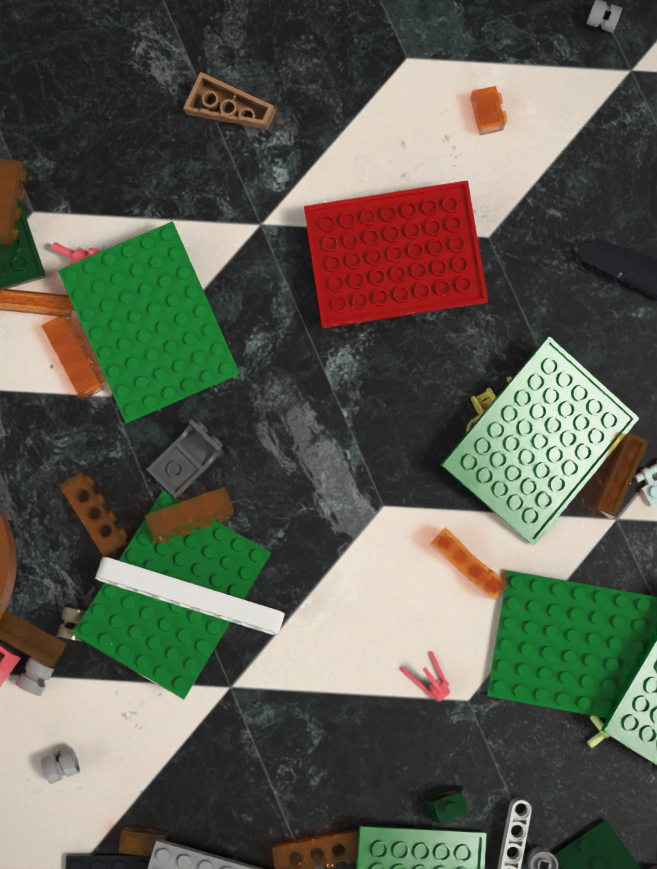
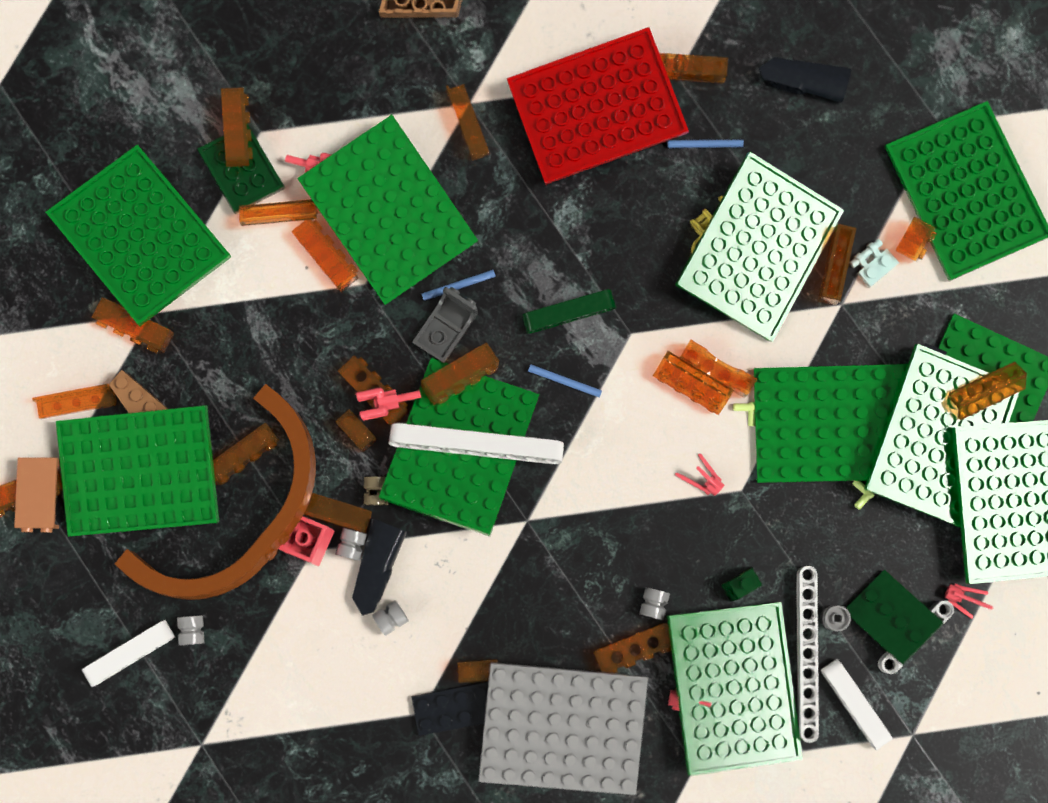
camera: 10 degrees left, 0 degrees up
(58, 704) = (376, 565): none -> black panel
(66, 553) = (356, 430): none -> clear orange brick
(100, 529) = (383, 401): none -> coral plant
(209, 417) = (460, 284): none -> medium blue bar
(254, 244) = (467, 122): none -> clear orange panel
(301, 543) = (564, 380): none -> medium blue bar
(321, 469) = (569, 311): none -> dark green beam
(348, 807) = (654, 603): none -> light grey wheel
(439, 574) = (693, 383): none -> clear orange brick
(495, 611) = (750, 407): none -> yellowish green piece
(504, 316) = (704, 143): none -> medium blue bar
(509, 232) = (695, 67): none -> clear orange brick

